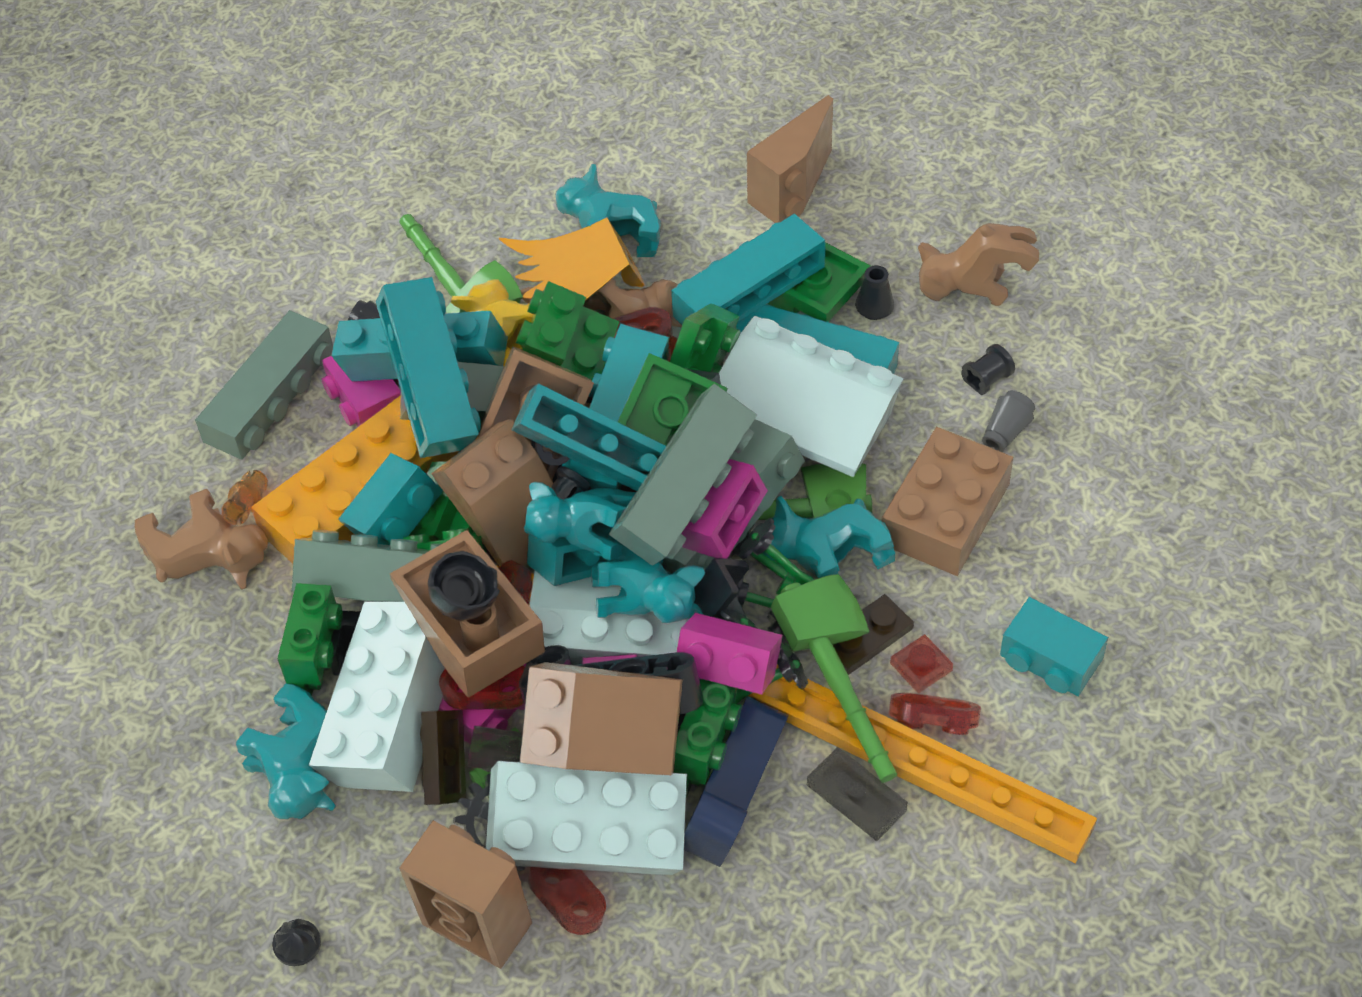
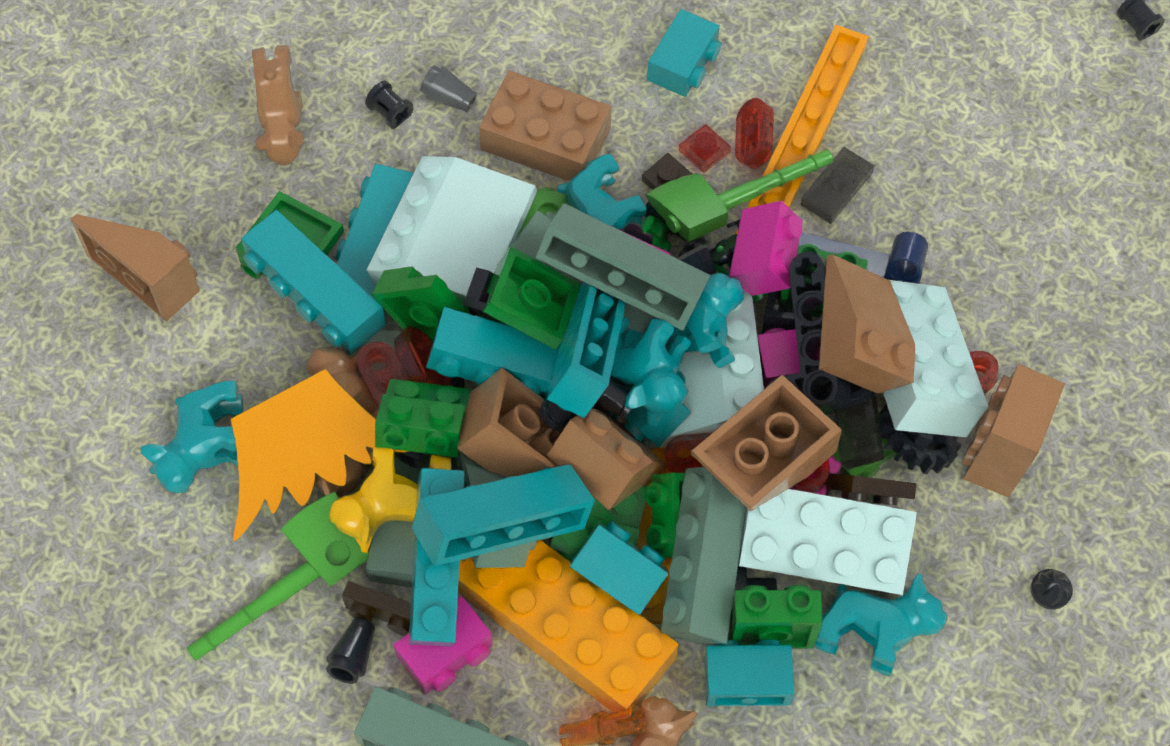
camera: 100 degrees left, 10 degrees up
(262, 629) = (749, 674): none -> teal brick
(462, 585) = (775, 426): black hair -> none
(875, 294) = (306, 189): black cone -> none

